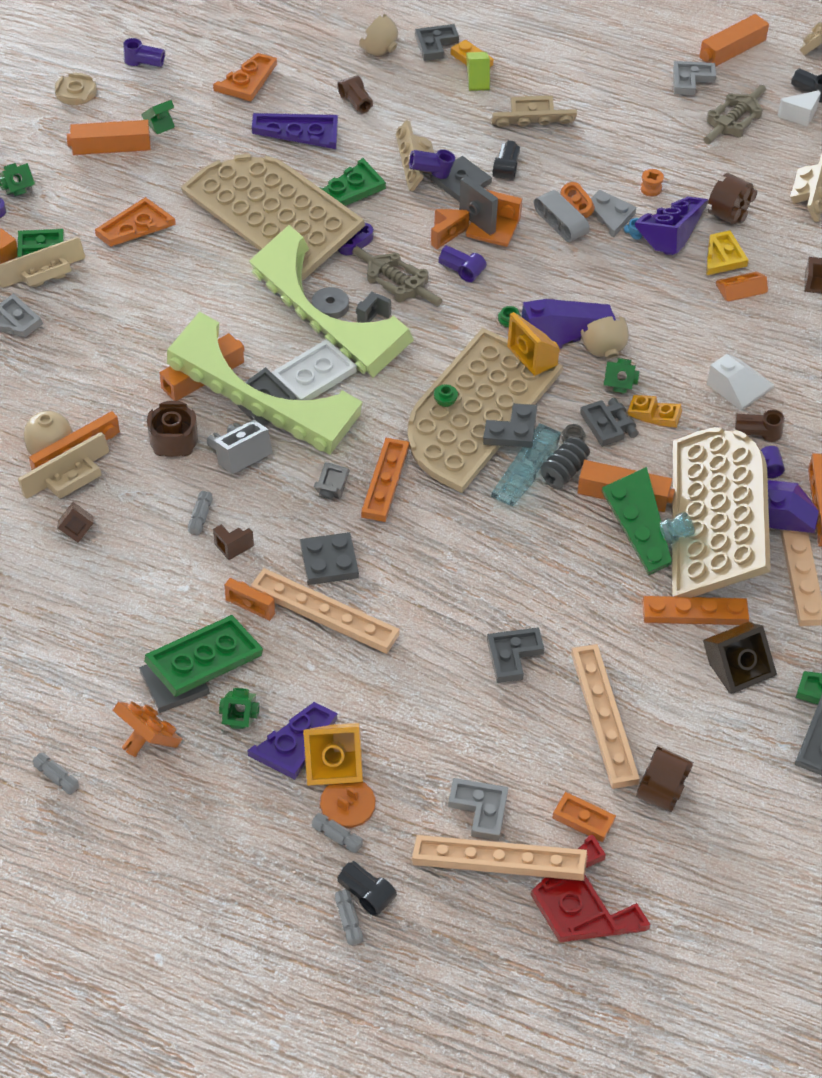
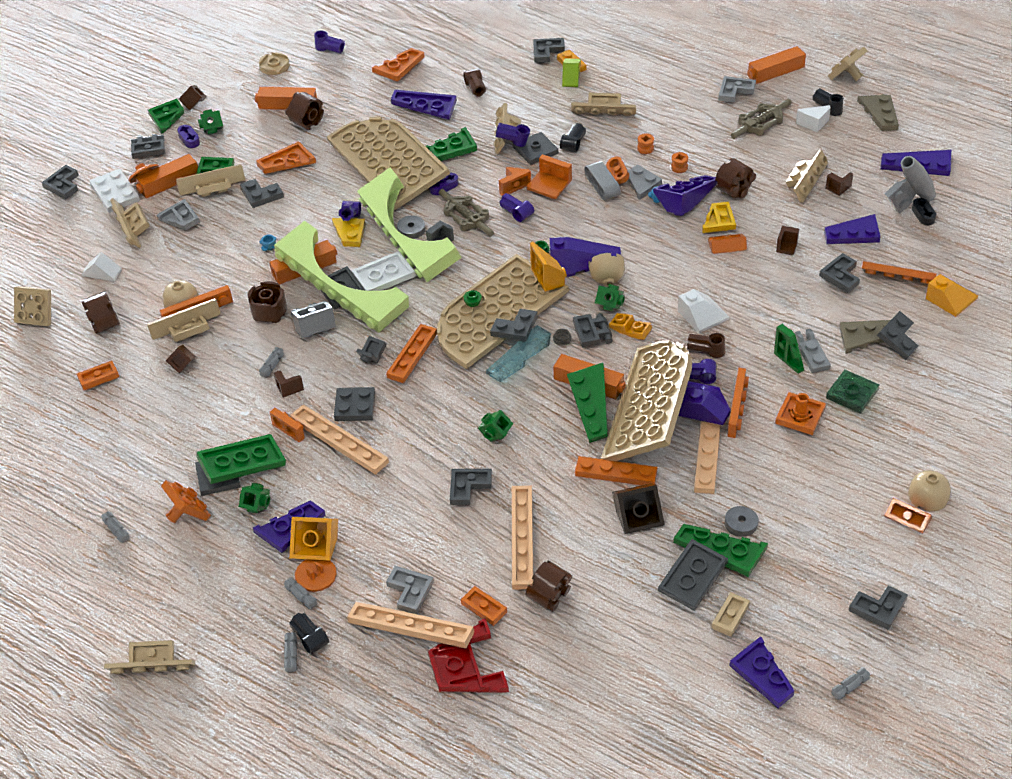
camera: 15 degrees right, 5 degrees down
(110, 278) = (259, 196): none -> dark grey plate
(143, 152) = (305, 110): none -> reddish brown brick
(145, 344) = (268, 242): none -> dark azure plate
(159, 117) = (326, 87): green slope -> none
(161, 951) = (150, 655): none -> tan bracket
(244, 288) = (349, 210): none -> dark purple piece
(249, 316) = (350, 231): none -> yellow wing
(380, 36) = (504, 42): tan cylinder -> none
(480, 204) = (537, 165): dark grey plate -> none
(527, 568) = (495, 425): none -> green brick
(565, 462) = (547, 355): dark grey piece -> none
(601, 160) = (645, 143): none -> orange wheel
(678, 527) = (616, 409): clear light blue wheel -> none

